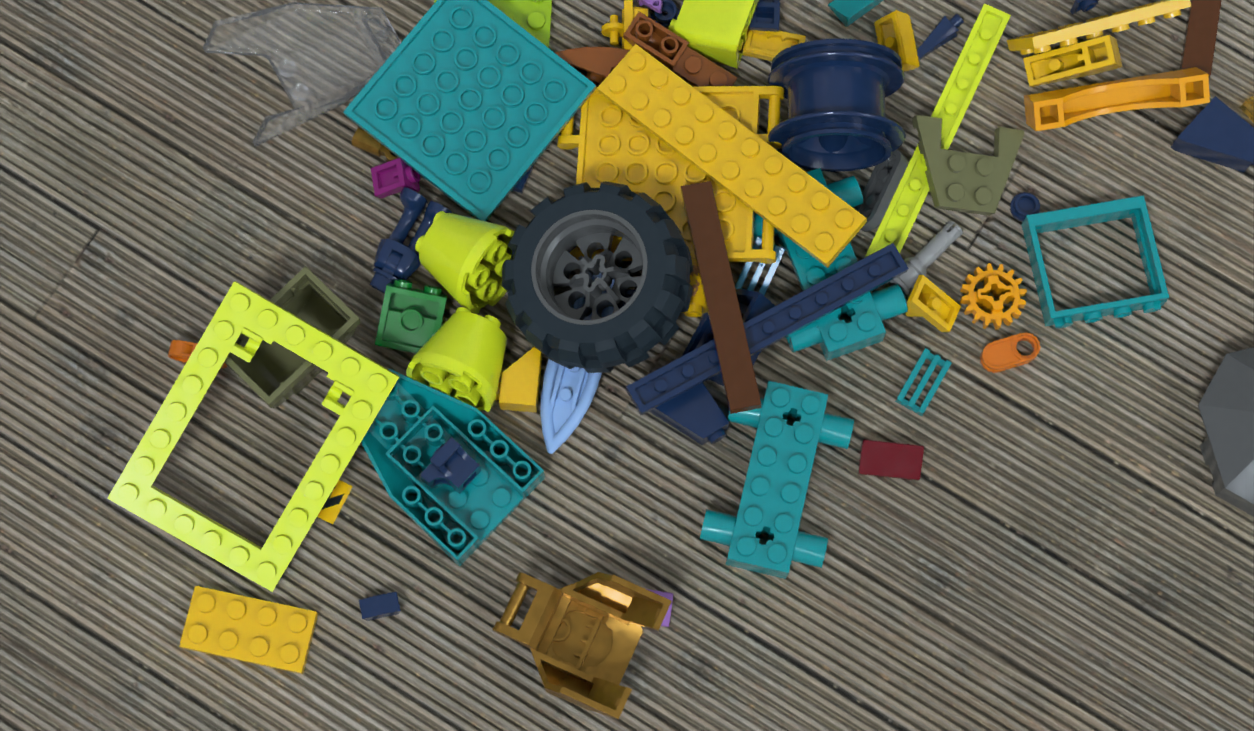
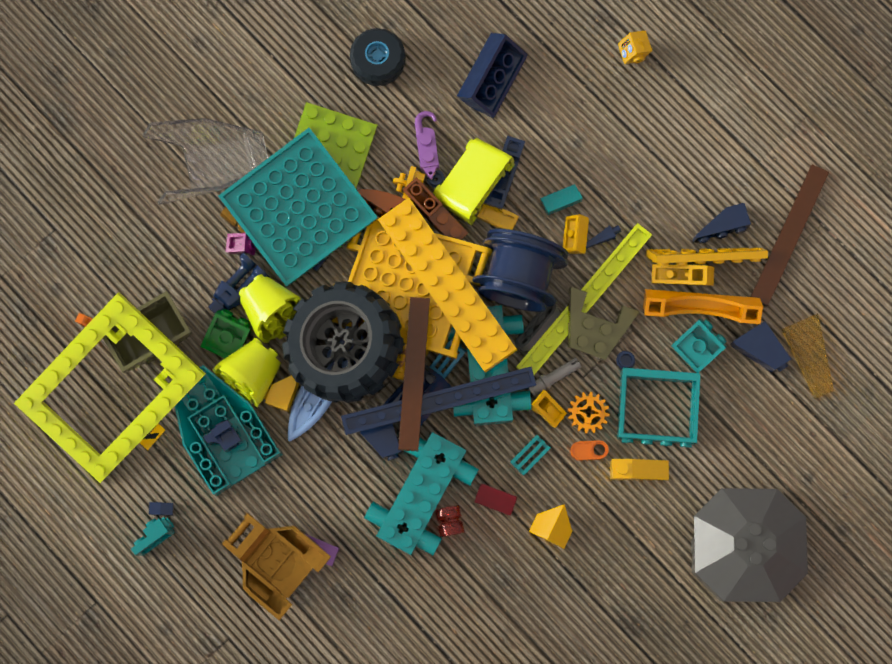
camera: 20 degrees right, 5 degrees up
(248, 629) = (80, 502): yellow plate -> none
(386, 640) = (156, 533): none -> teal plate
(831, 520) = (449, 521): none -> clear red wheel
(989, 477) = (553, 526): none -> yellow slope
(1091, 361) = (639, 469): none -> yellow slope
(1129, 156) = (699, 345): none -> teal plate

